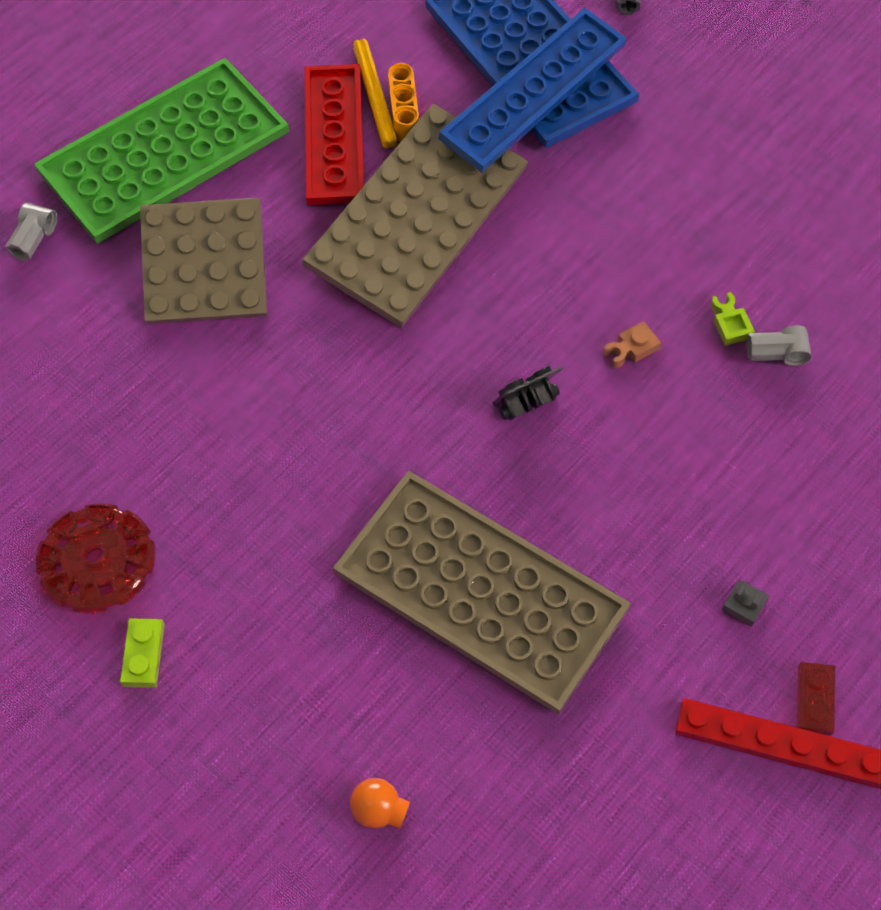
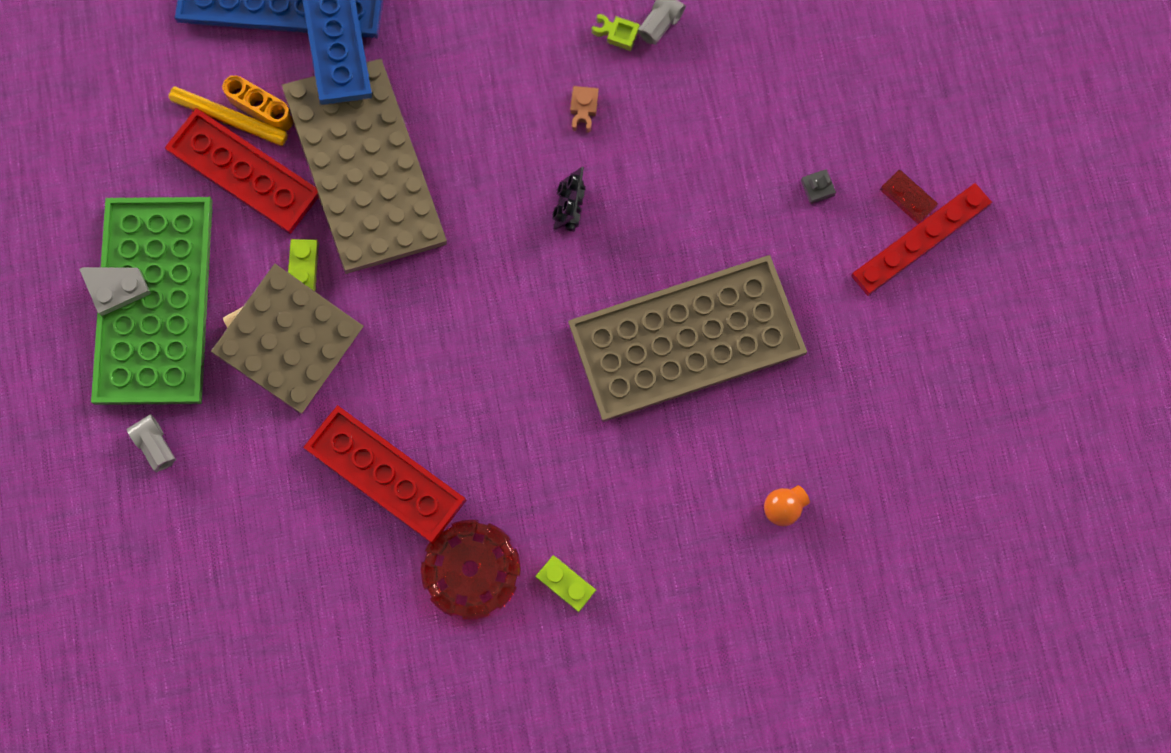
camera: 50 degrees left, 15 degrees up
(134, 424) = (385, 474): none -> red plate
(148, 111) = (114, 287): none -> light grey wing
(288, 232) = (303, 261): none -> lime plate

